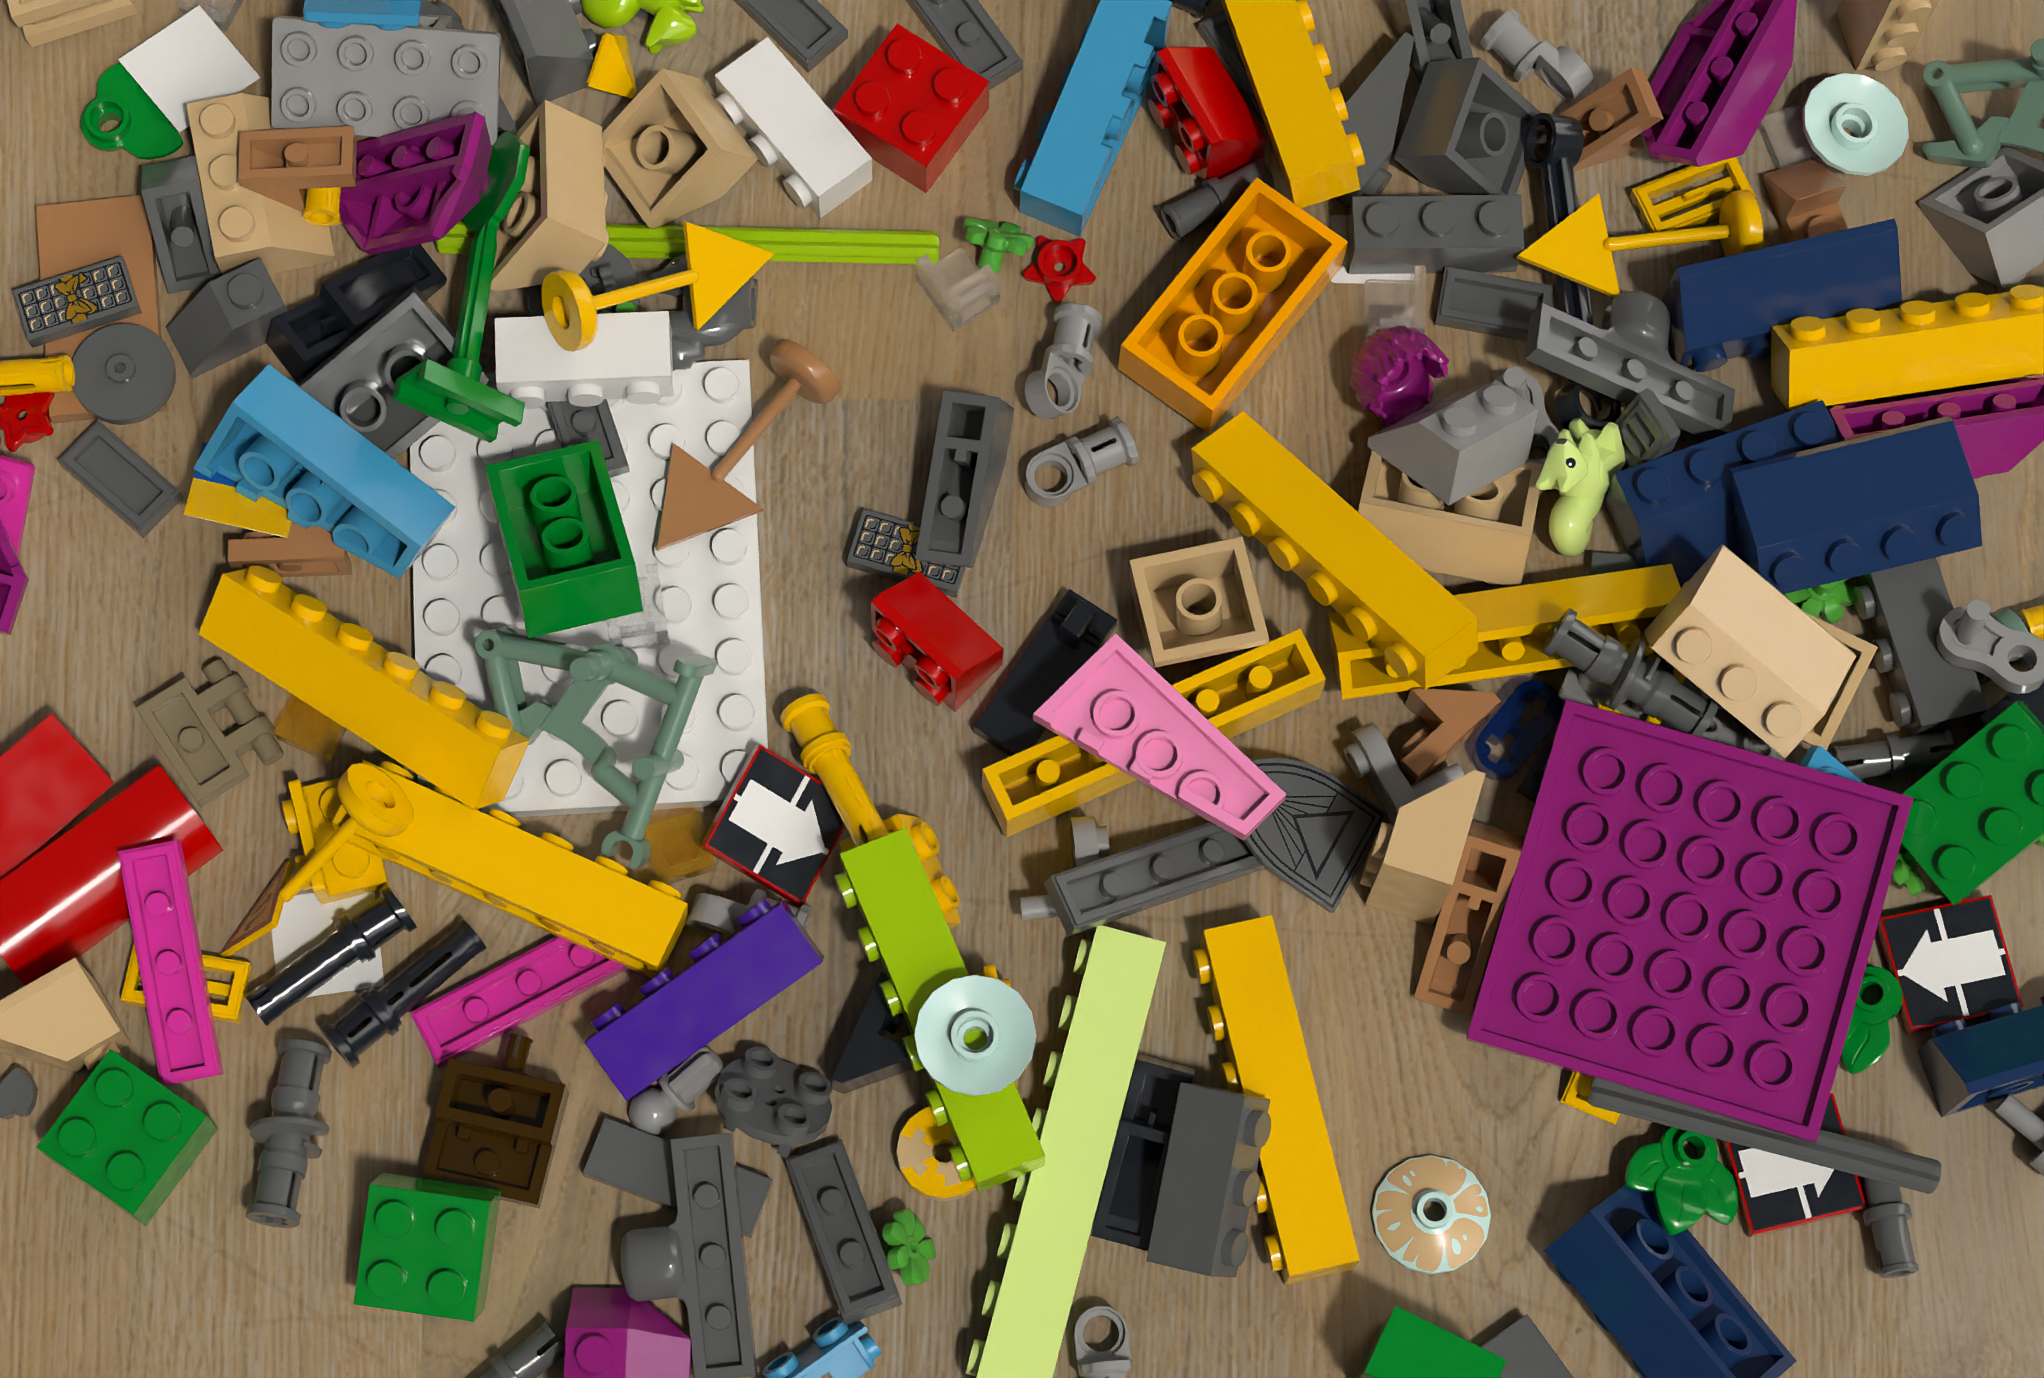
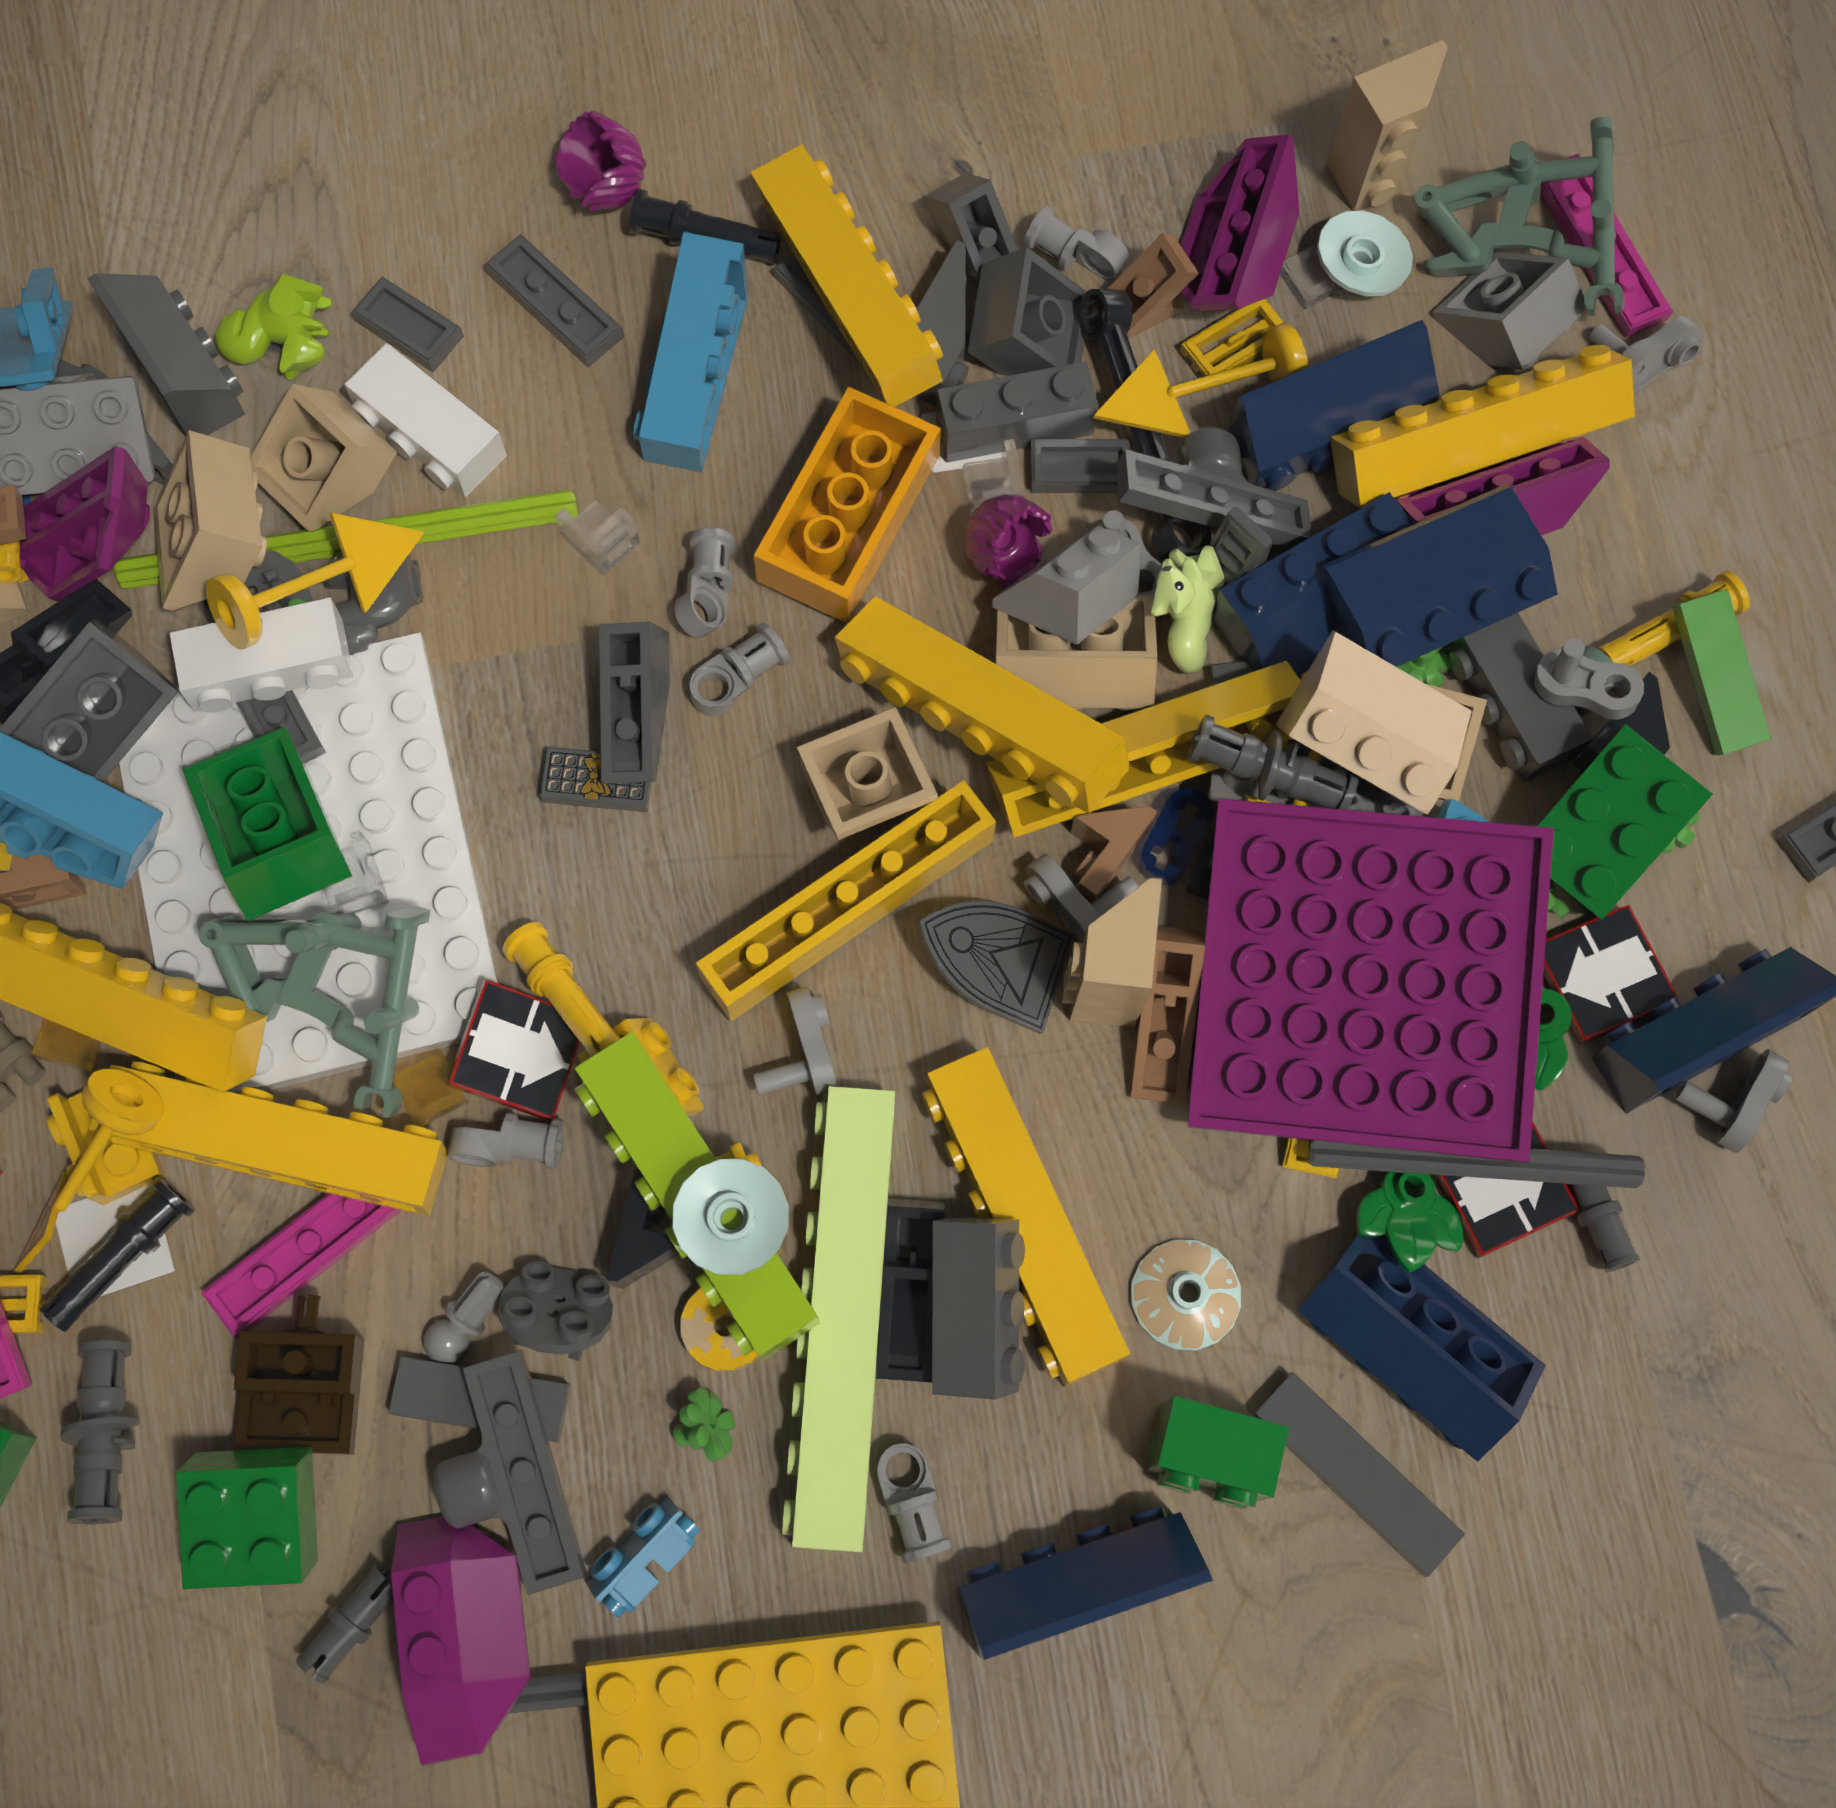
camera: 10 degrees left, 0 degrees up
(455, 391) = (144, 706): green piece -> none
(461, 946) = (175, 1303): black pin -> none
(613, 67) = (251, 393): yellow slope -> none
(701, 498) = (395, 764): medium nougat piece -> none
(704, 998) = (472, 1228): dark purple brick -> none
(843, 1232) = (644, 1422): dark grey tile -> none
(913, 107) = (530, 382): red brick -> none
(933, 640) = (631, 853): red slope -> none
(996, 240) = (626, 486): bright green plant -> none
(1058, 651) = (740, 866): black hinge -> none
(1063, 252) = (688, 488): red plate -> none
(1148, 876) = (868, 1032): dark grey tile -> none
(1152, 733) = (845, 900): bright pink wing -> none
(1203, 112) = (791, 343): red slope -> none
(1213, 199) = (811, 419): dark grey pin -> none
(1806, 199) = (1333, 323): medium nougat slope -> none
(1895, 755) = (1519, 795): dark grey pin -> none

